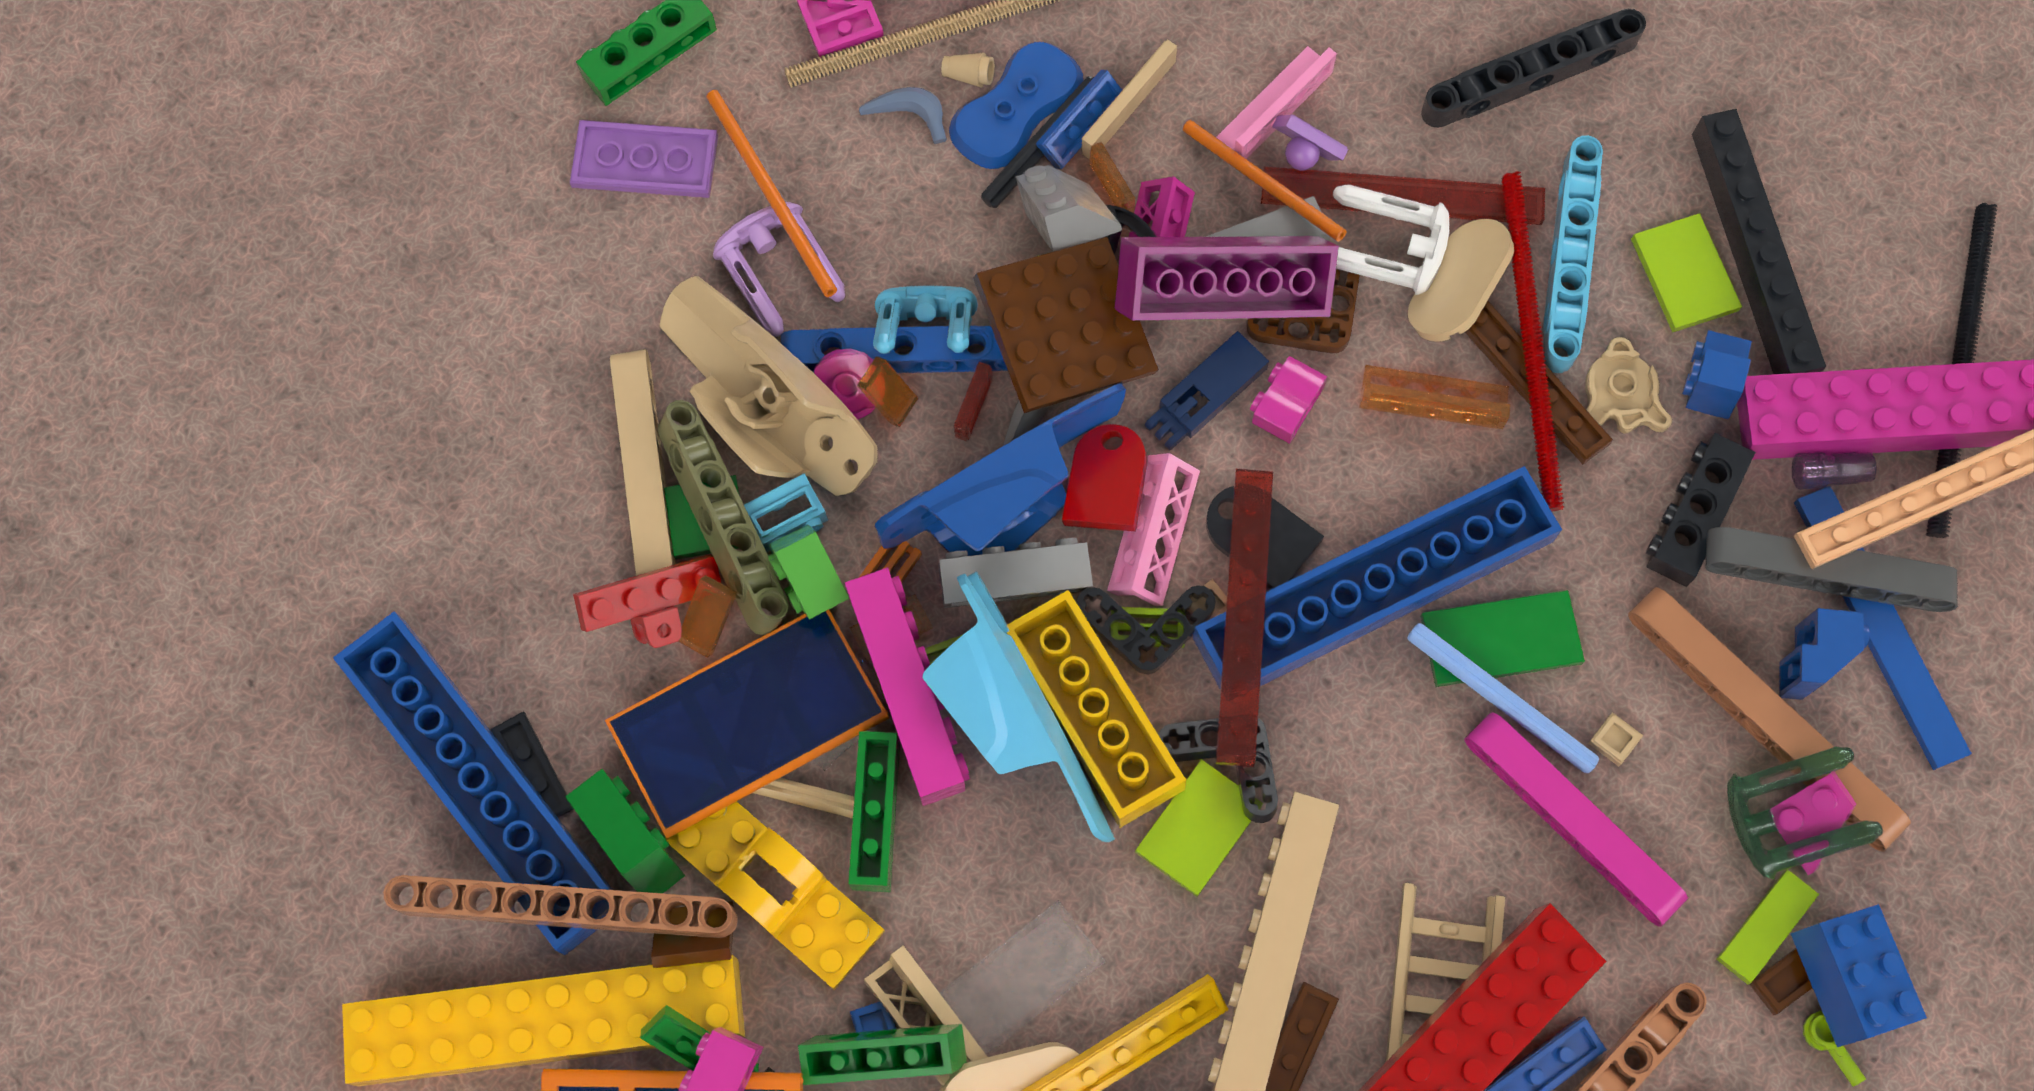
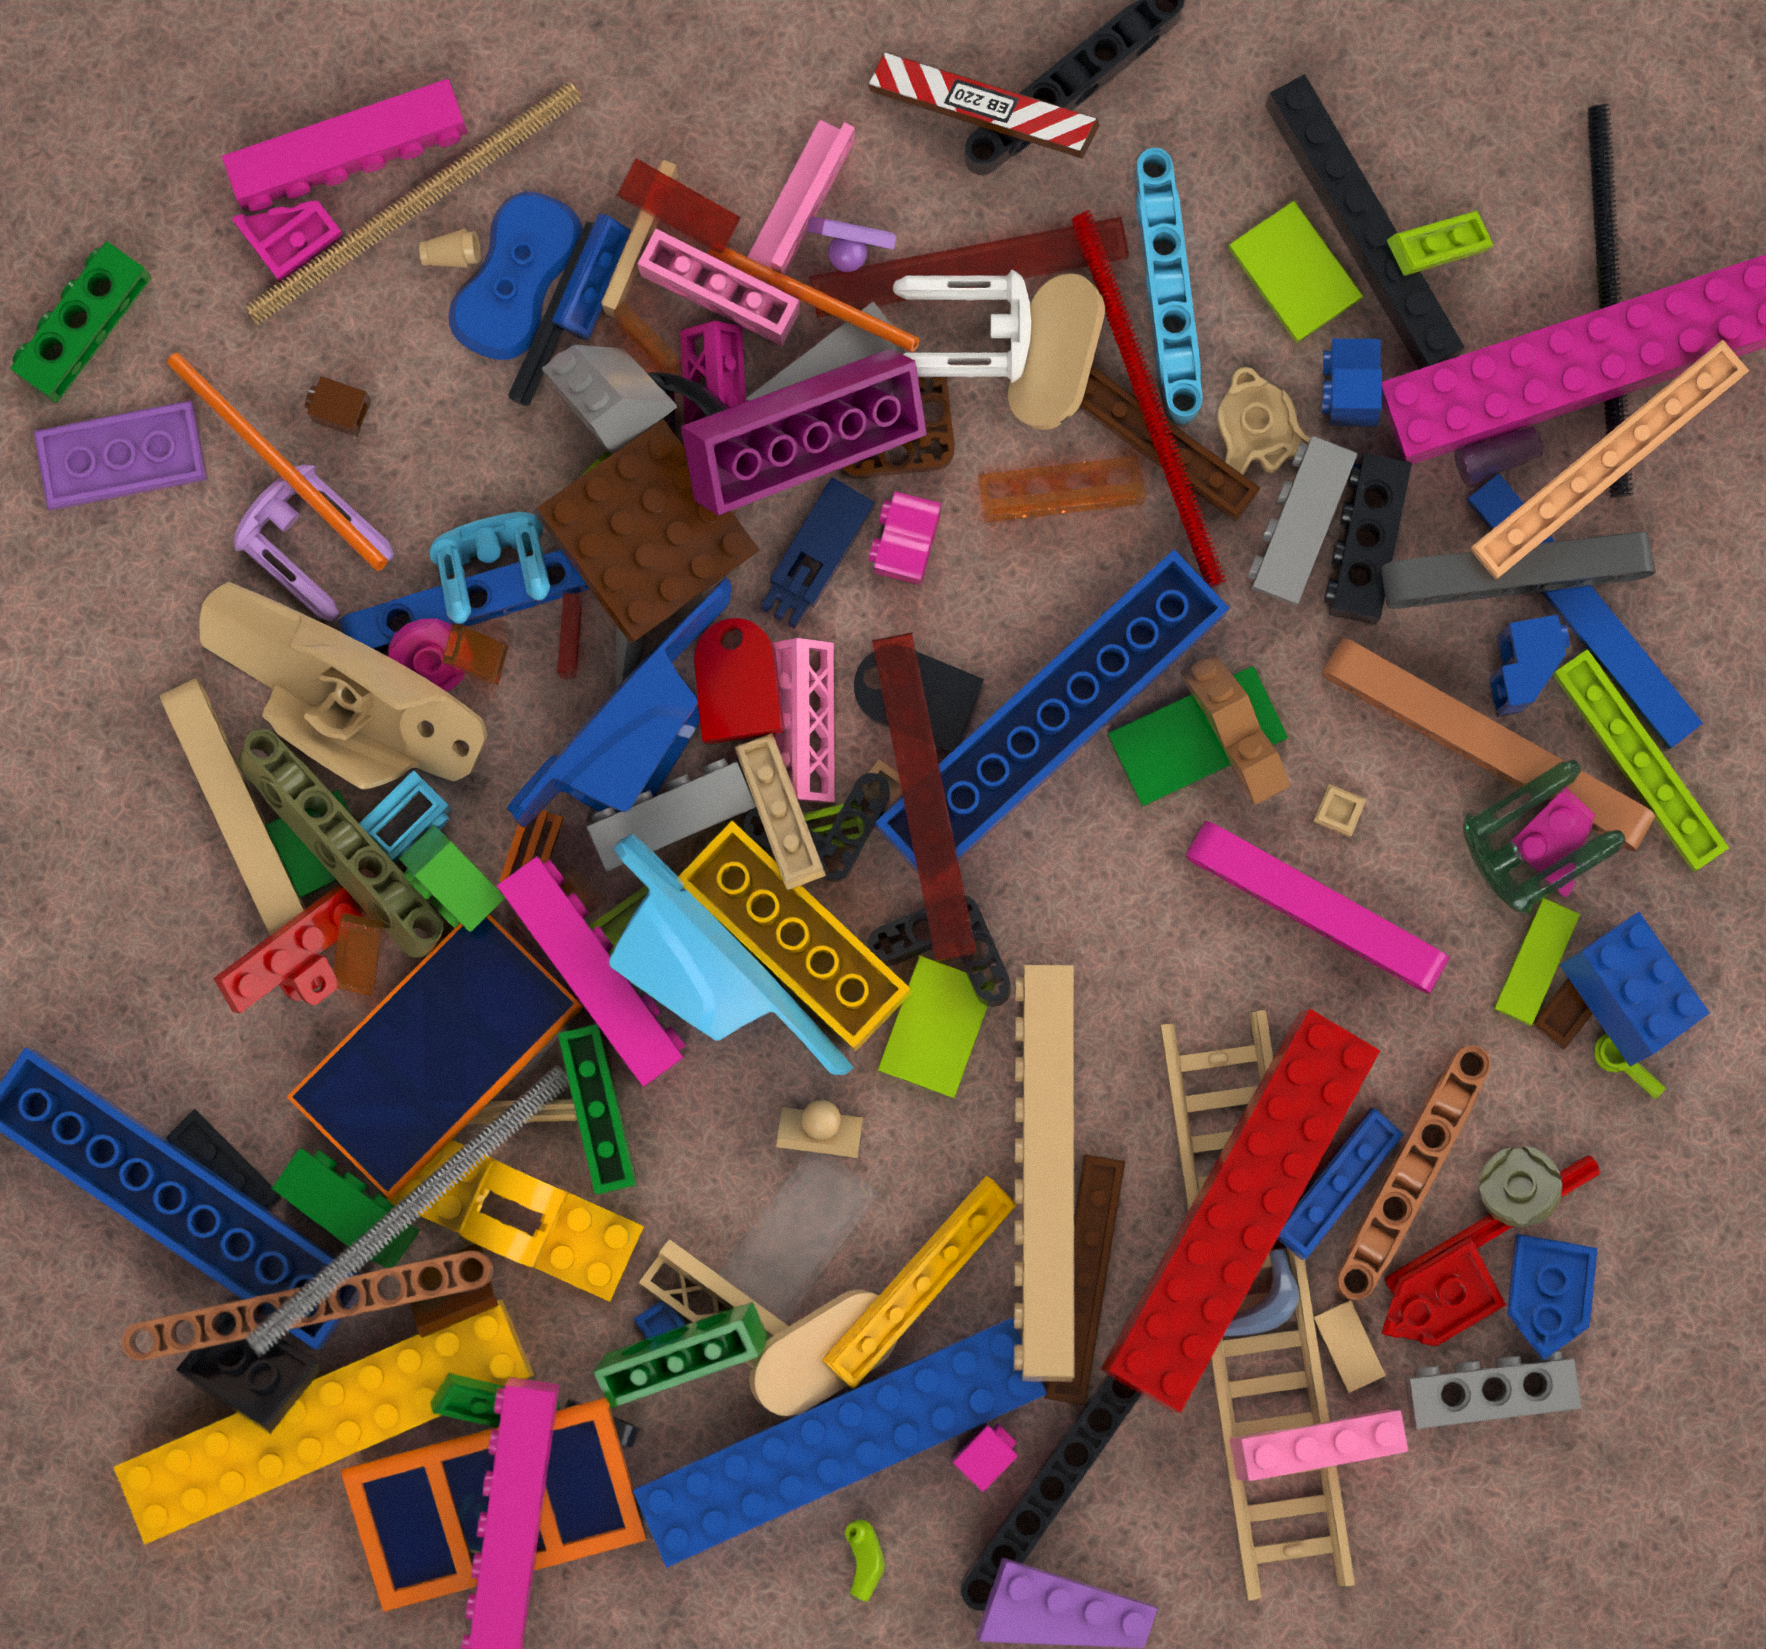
camera: 20 degrees left, 10 degrees up
(492, 957) = (251, 1384): none -> black tile
(673, 846) = (407, 1209): none -> light grey axle
(836, 164) = (337, 406): none -> reddish brown brick
(911, 100) = (400, 304): sand blue piece -> none
(1068, 888) = (819, 1130): none -> tan tile
(1113, 595) = (780, 811): none -> tan tile
(1169, 77) = (678, 206): none -> clear red tile
(1185, 152) = (718, 287): none -> bright pink brick
(1453, 64) = (984, 105): none -> tile
(1503, 698) = (1212, 802): light blue axle -> none
(1540, 626) = (1237, 728): none -> medium nougat arch
(1644, 477) = (1303, 520): none -> light grey brick
(1823, 276) = (1440, 243): none -> lime tile
(1906, 772) = (1640, 760): none -> lime plate

